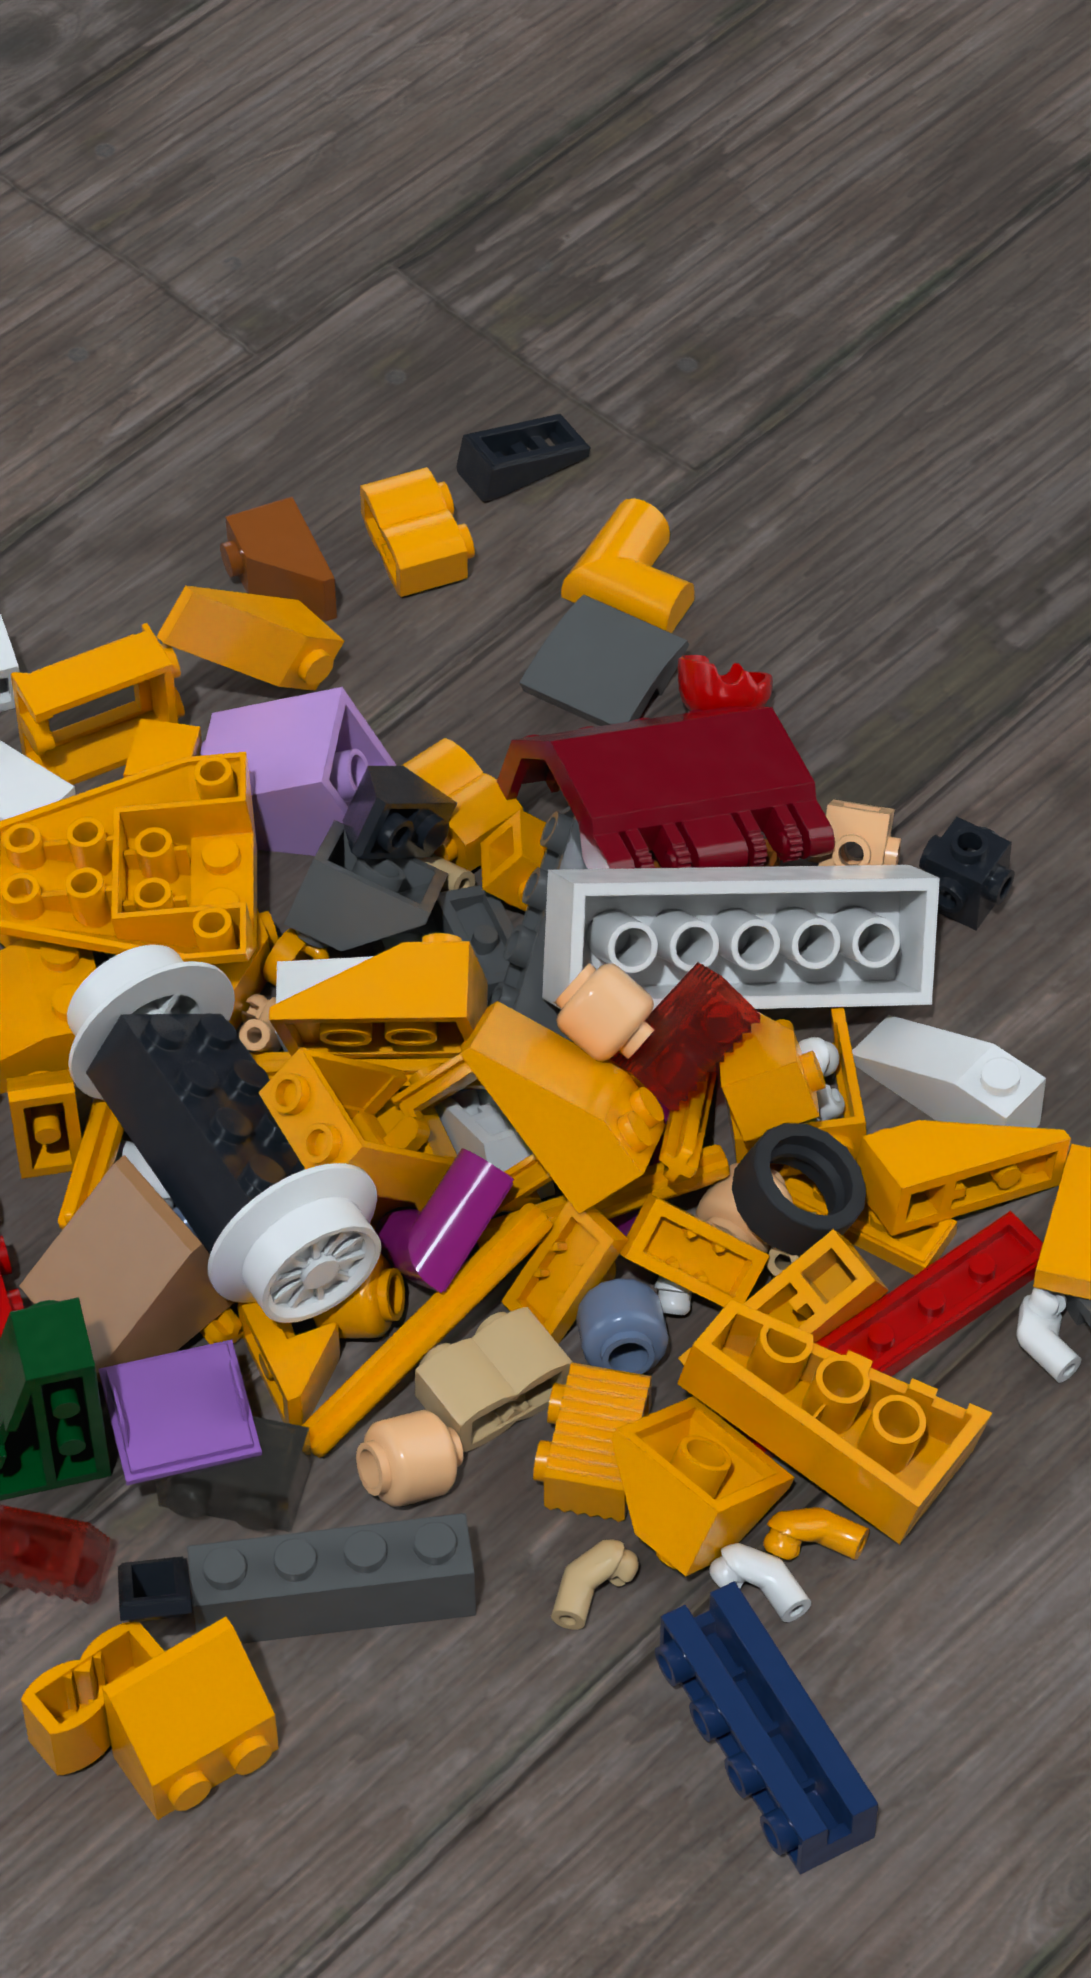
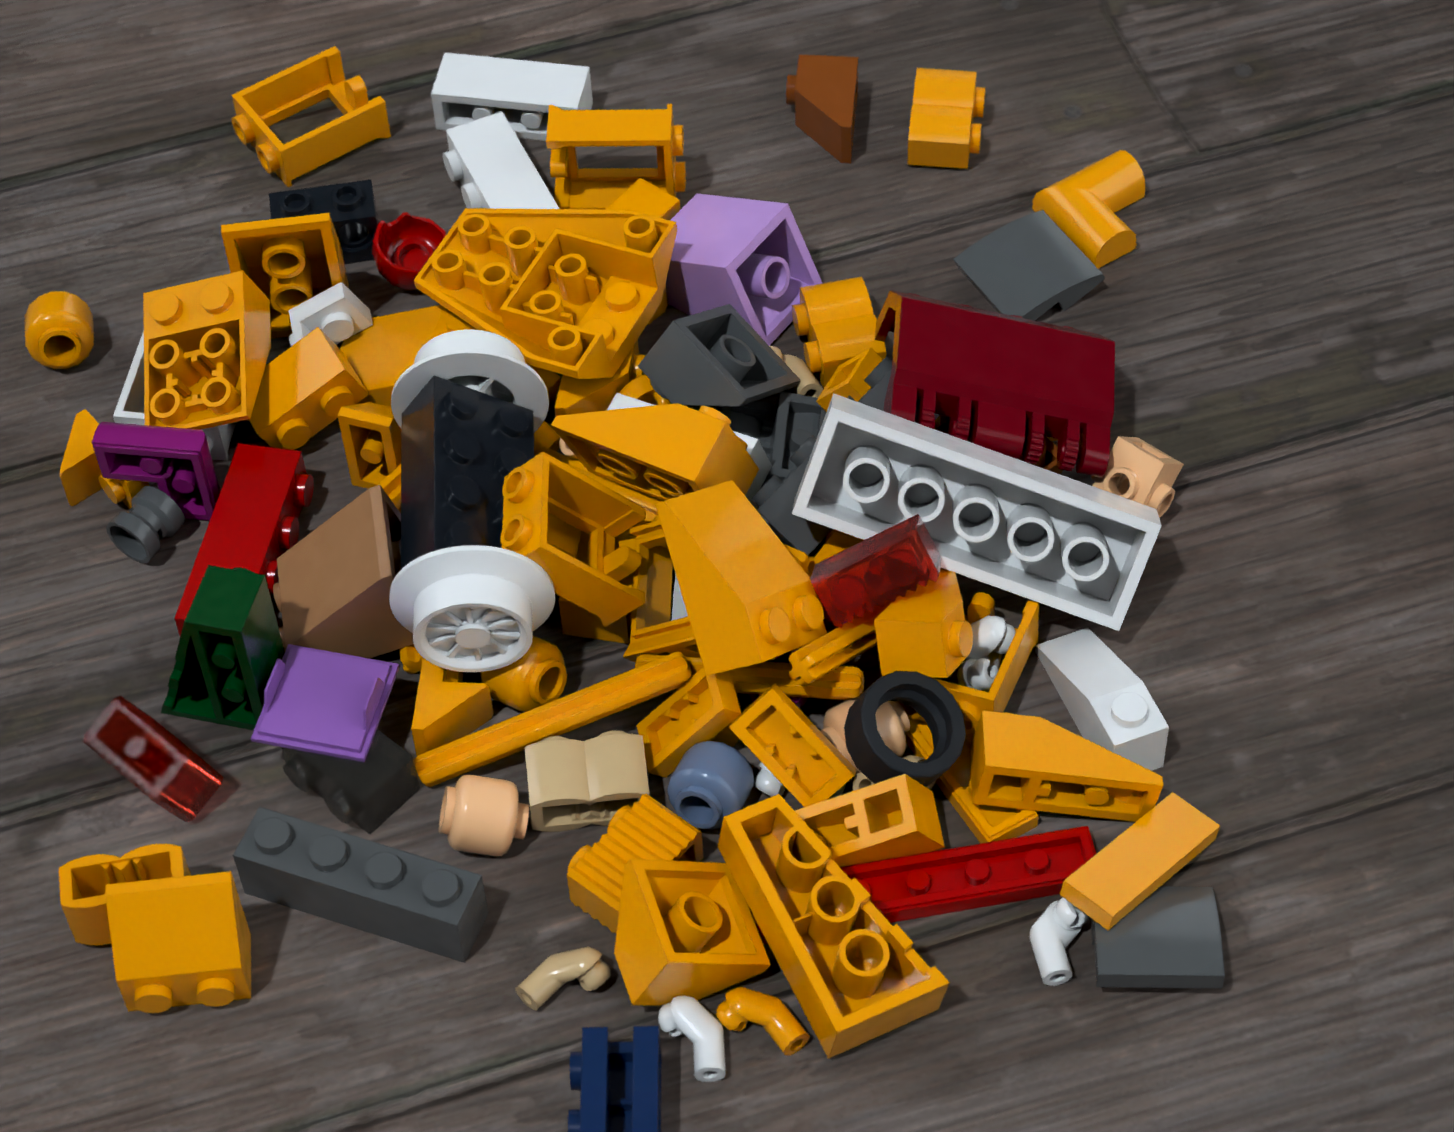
camera: 30 degrees right, 0 degrees up
(154, 1589) = (210, 831): black slope -> none
(253, 635) = (757, 145): light orange slope -> none
(396, 815) = (776, 317): black slope -> none
(436, 1241) = (605, 641): magenta brick -> none
(500, 463) = (1060, 89): black slope -> none
(605, 1012) = (811, 522): light nougat head -> none
(706, 689) = (1093, 313): red hair -> none
(970, 869) = (1216, 538): black brick -> none

